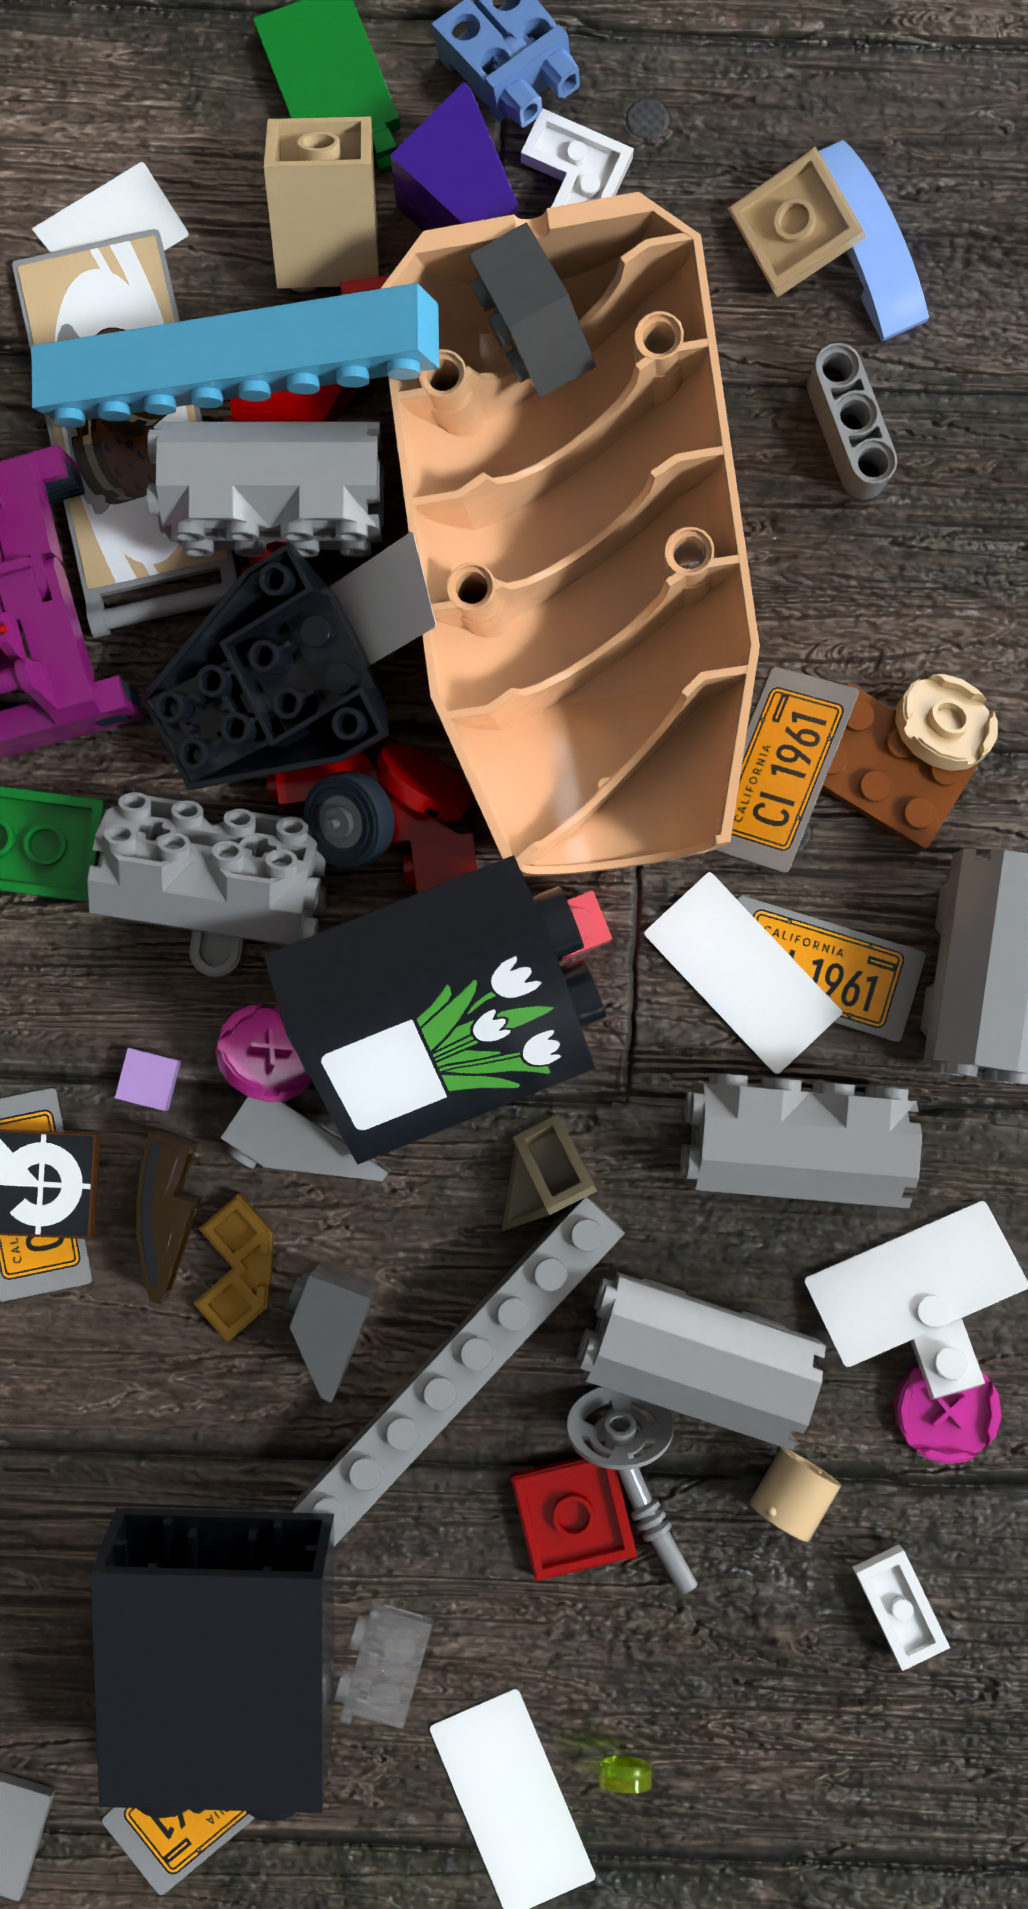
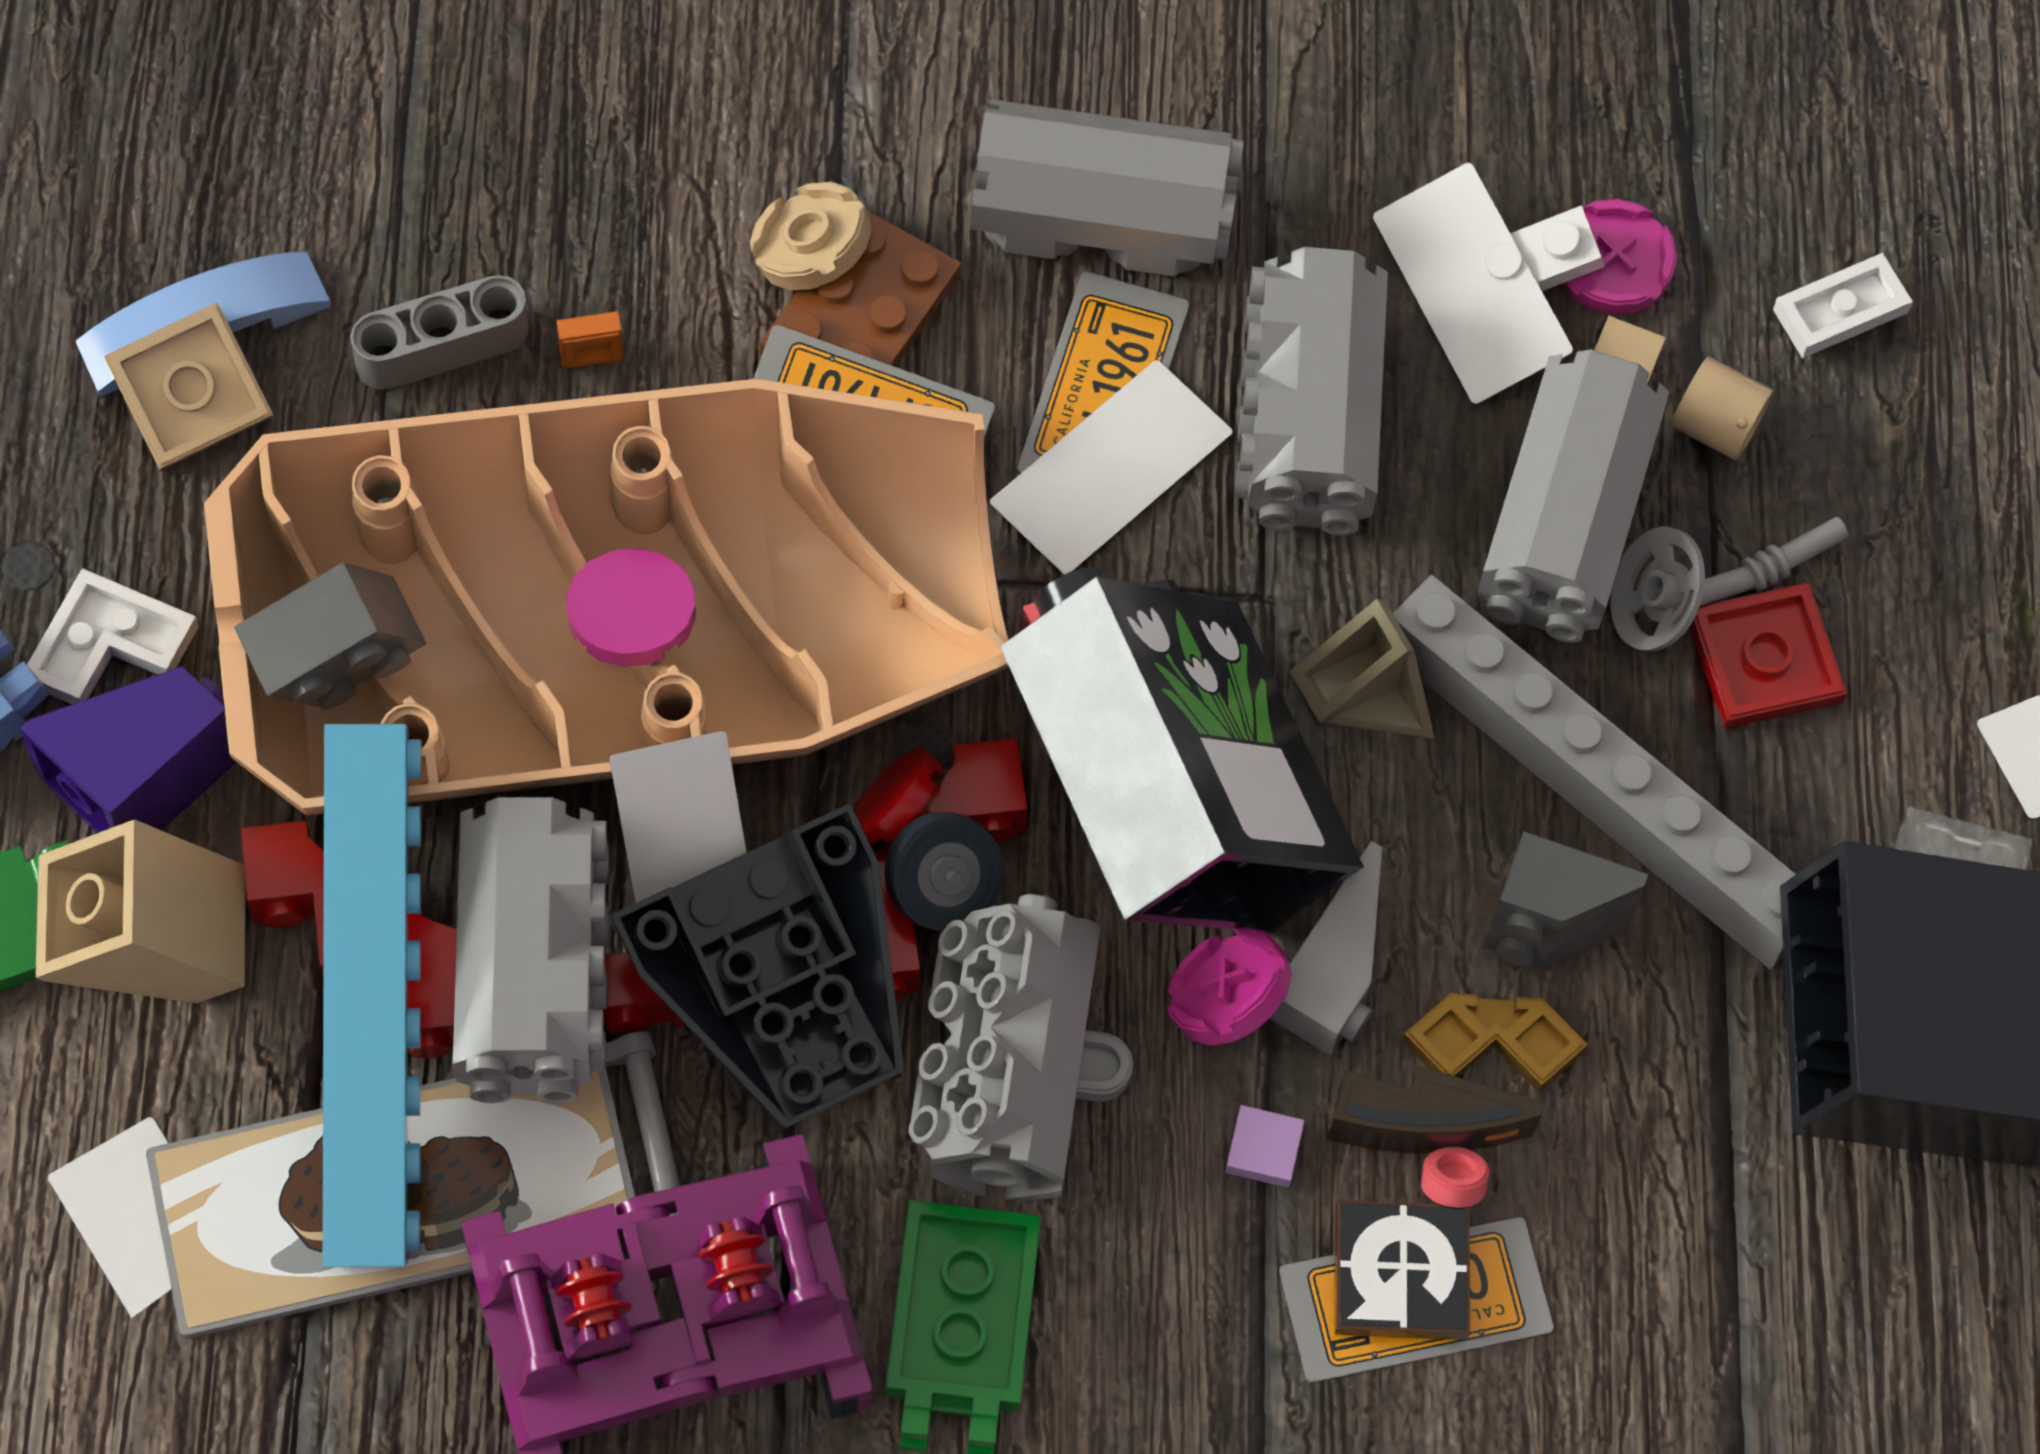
camera: 90 degrees left, 20 degrees down
(113, 1229) = (1455, 1177): none -> coral tile
(569, 558) = (631, 606): none -> dark pink tile
(846, 543) = (590, 340): none -> orange tile
(851, 1412) = (1630, 343): none -> tan tile

